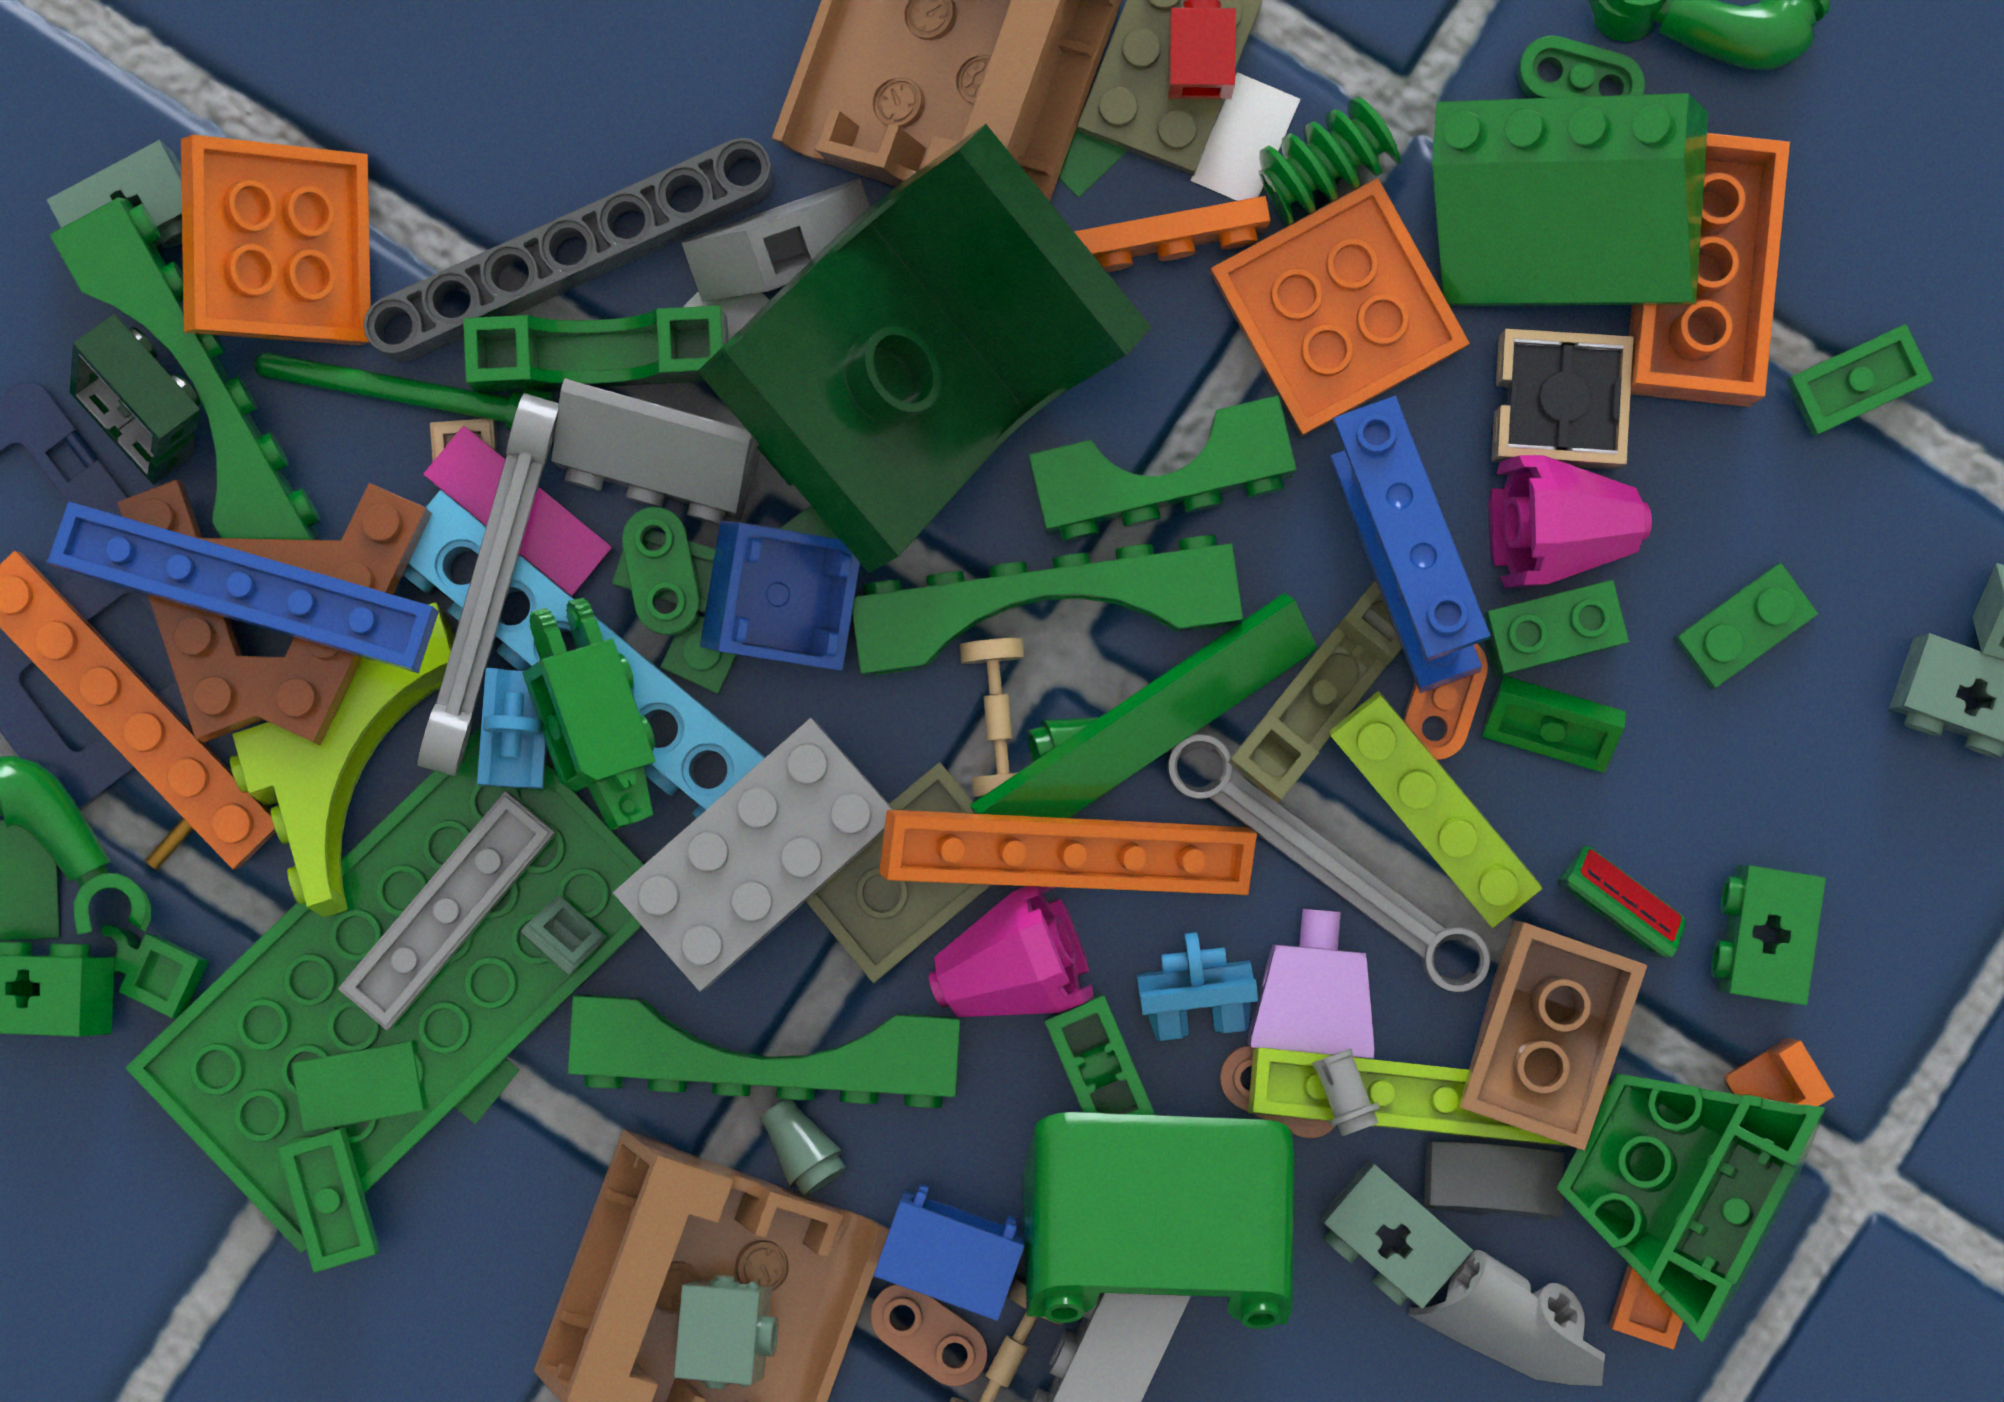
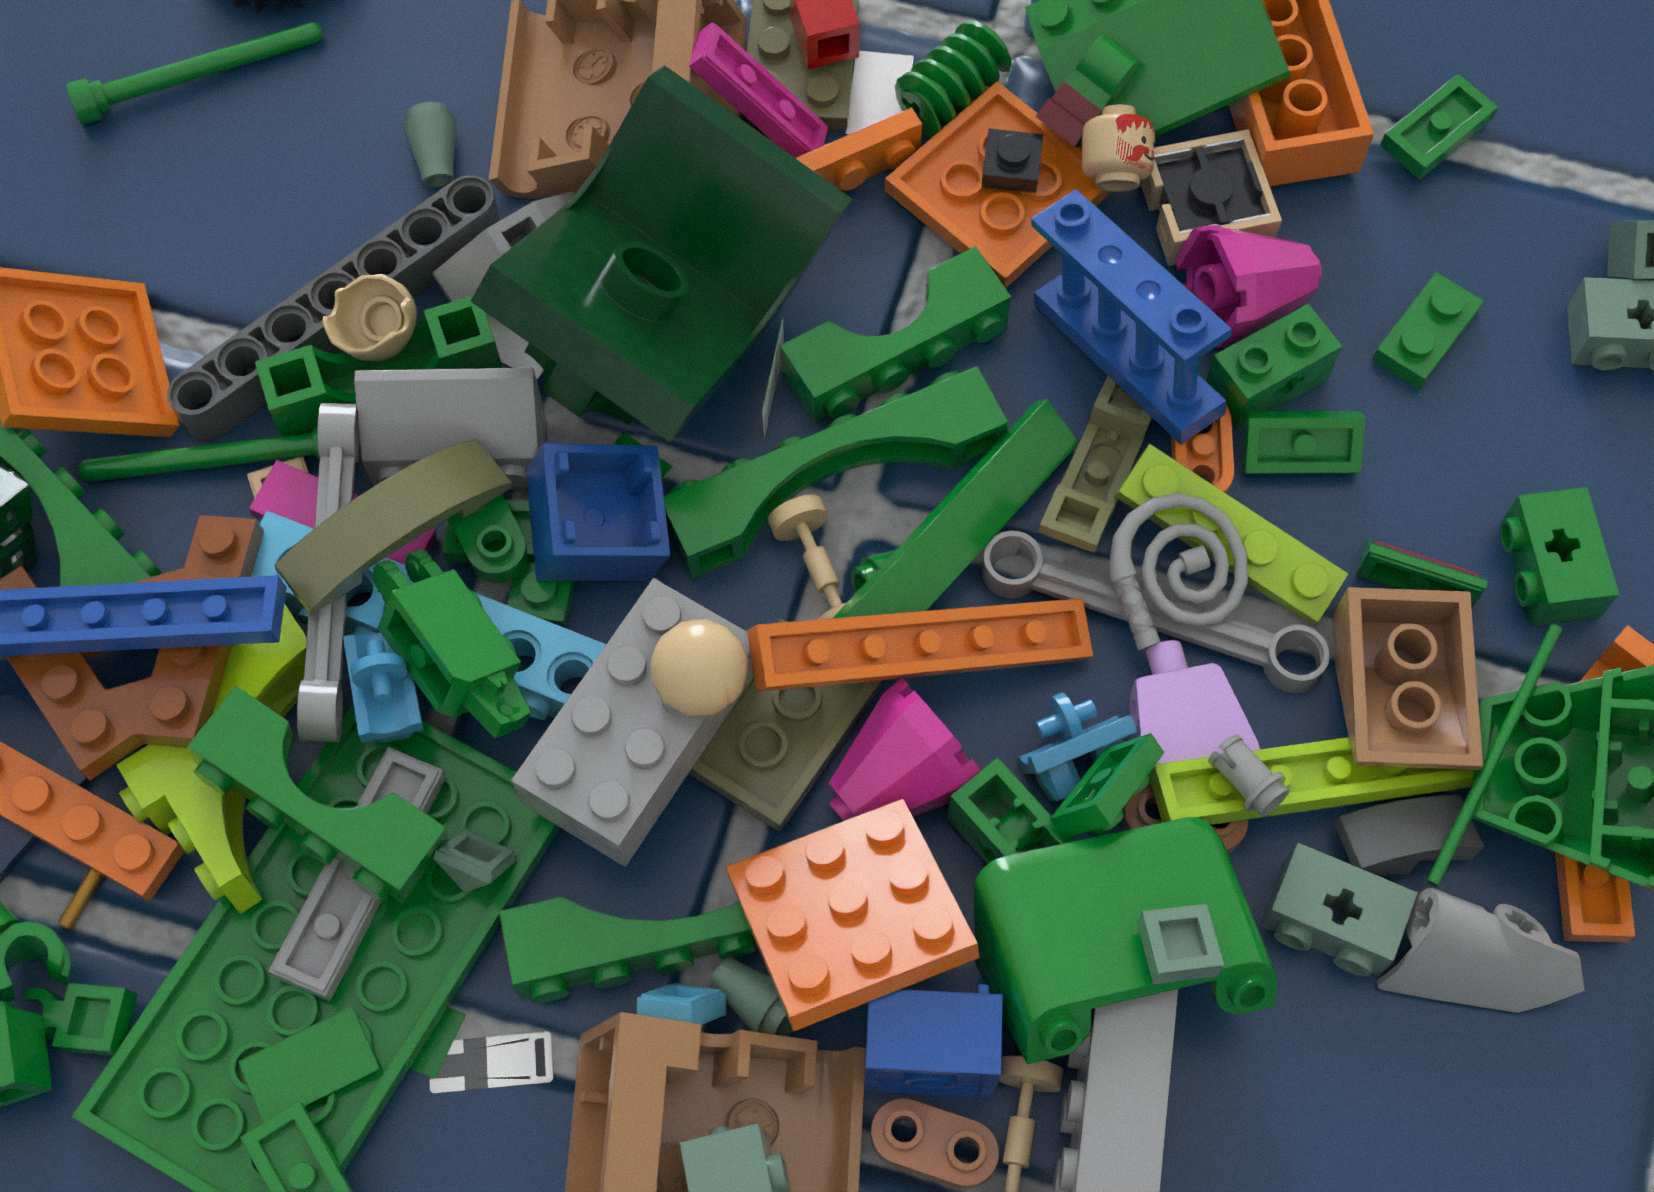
camera: 25 degrees left, 20 degrees down
(475, 905) = (383, 842): none -> green arch
(537, 1125) = (496, 1062): none -> white sticker
(565, 560) = (387, 518): none -> olive slope
(597, 301) = (371, 318): none -> tan hair
(721, 66) = (432, 139): none -> sand green cone
(725, 1138) = (683, 1003): none -> medium azure tile
(826, 840) = (699, 667): none -> tan hair
(906, 1116) = (851, 914): none -> plate
(1013, 481) = (772, 381): none -> white sticker
(1095, 137) = (756, 92): none -> dark pink tile
(1202, 1061) = (1107, 787): none -> green plate
(1202, 1263) = (1180, 943): none -> sand green plate
(1357, 293) = (1012, 160): none -> black plate
(1379, 835) = (1189, 562): none -> light grey piece
(1463, 246) = (1088, 89): none -> leg
(1473, 328) = (1118, 149): none -> tan head
(1605, 1137) = (1494, 756): none -> green piece

